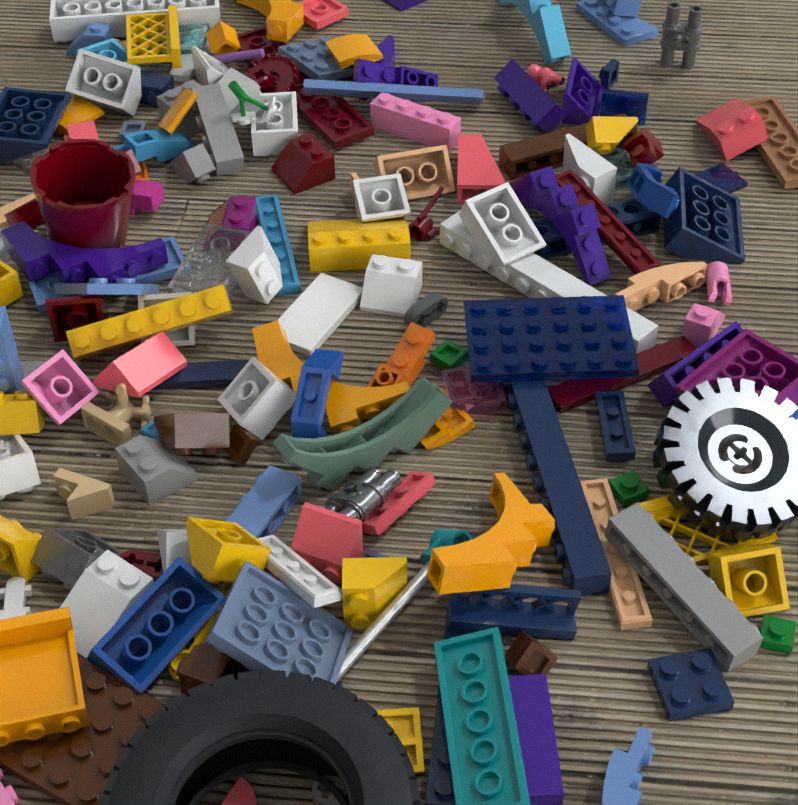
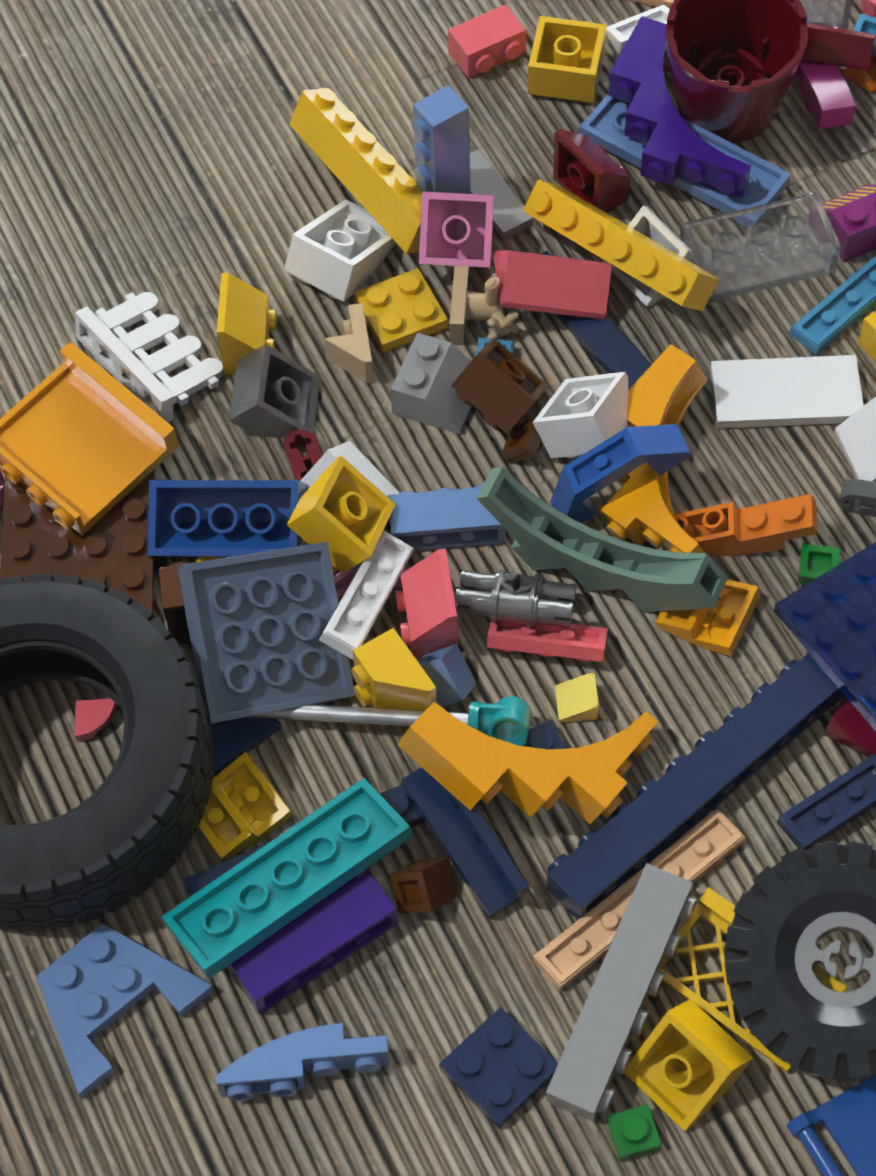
camera: 60 degrees right, 15 degrees up
(77, 454) = (401, 309): none -> yellow plate
(102, 598) = (231, 448): white slope -> none
(123, 286) = (638, 186): medium blue wing -> none
(256, 267) = (793, 287): white slope -> none
(450, 510) = (577, 699): none -> light yellow slope
(472, 396) = (762, 628): clear pink slope -> none
(628, 488) = (746, 865): green plate -> none

